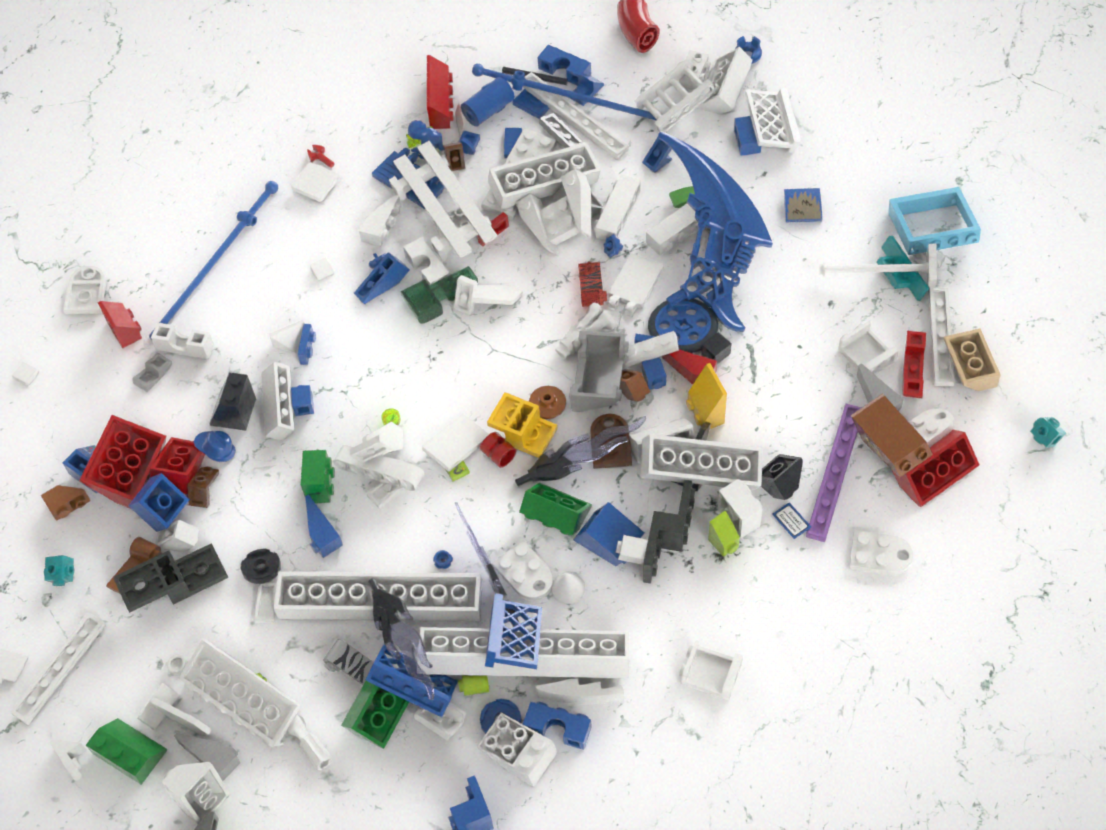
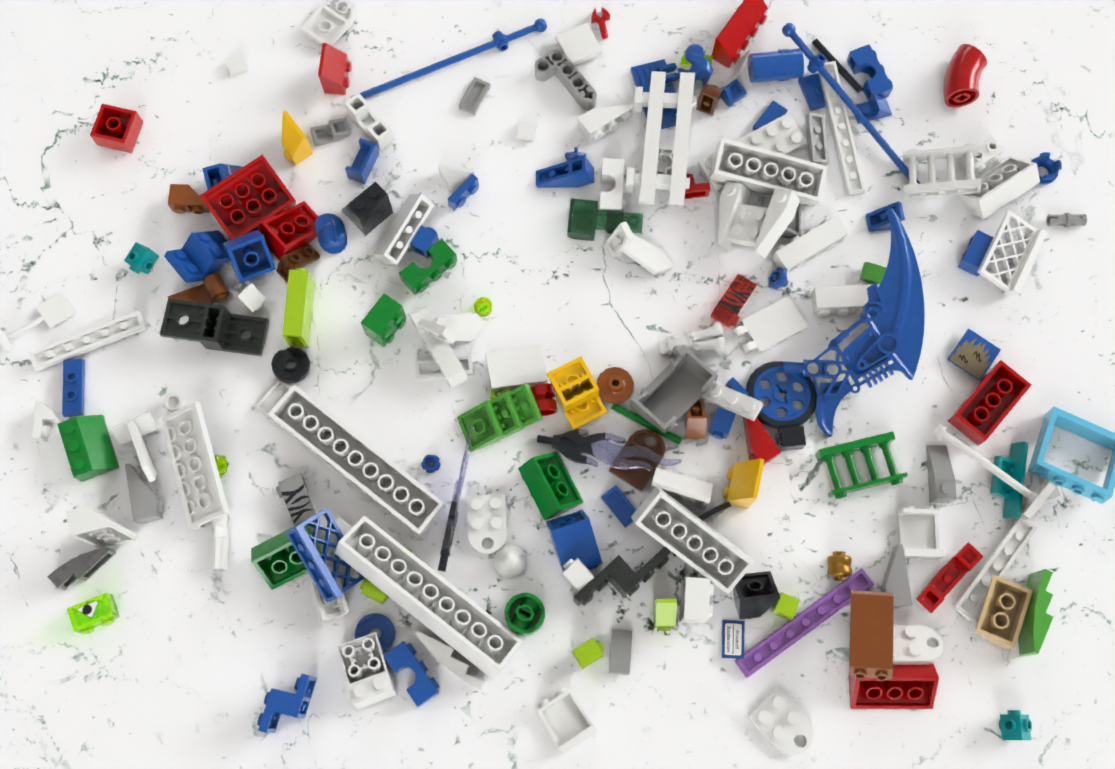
camera: 30 degrees right, 15 degrees up
(73, 714) = (73, 387): none -> blue plate
(113, 531) = (199, 256): none -> blue bracket
(128, 393) = (294, 141): none -> yellow slope
(200, 374) = (363, 161): none -> blue panel
(235, 515) = (298, 308): none -> lime brick
(257, 271) = (474, 96): none -> light grey tile
(318, 430) = (419, 278): none -> green arch
(321, 532) = (355, 369): blue slope -> none
(327, 208) = (584, 95): none -> light grey beam
(398, 632) = (346, 492): clear purple piece -> none
(473, 485) = (500, 417): none -> bright green slope
(498, 630) = (411, 570): fence -> none
(593, 414) = (638, 419): none -> green bar
(613, 611) = (524, 614): none -> green brick
(624, 487) = (619, 505): none -> blue tile
(687, 608) = (588, 652): none -> lime brick
(713, 590) = (620, 652): none -> light grey slope
(776, 317) = (864, 446): none -> green fence
(792, 74) = (1066, 220): none -> light grey pin
(812, 468) = (786, 606): none -> lime piece
(827, 412) = (839, 566): none -> pearl gold piece
(841, 227) = (989, 403): none -> red brick
(849, 301) = (940, 475): none -> light grey slope
(999, 344) = (1036, 619): none -> bright green slope

